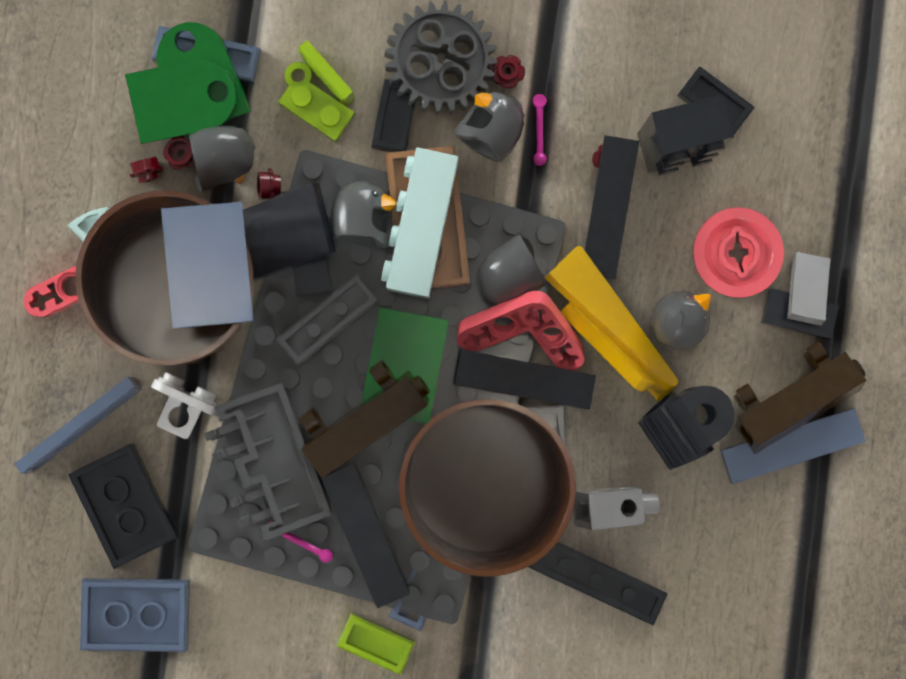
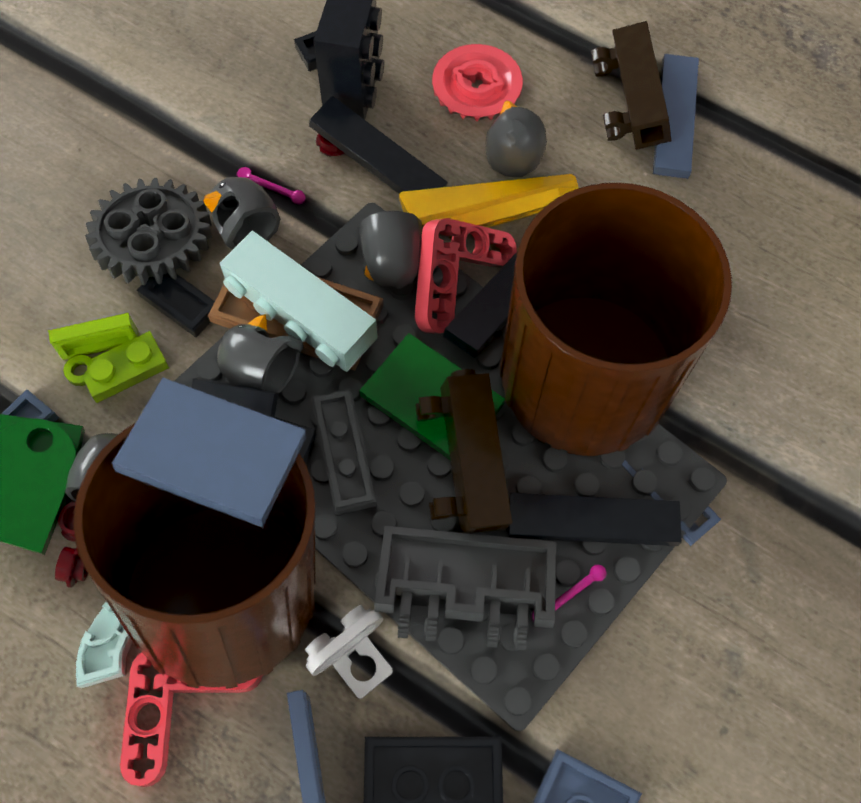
camera: 60 degrees left, 20 degrees down
(376, 643) = (716, 571): lime tile -> none
(508, 80) = (196, 176): dark red plate -> none
(602, 582) = (746, 320): black tile -> none
(678, 434) = (616, 167): black piece -> none
(777, 311) = (557, 61): black tile -> none
(808, 288) = (540, 39): light grey tile -> none

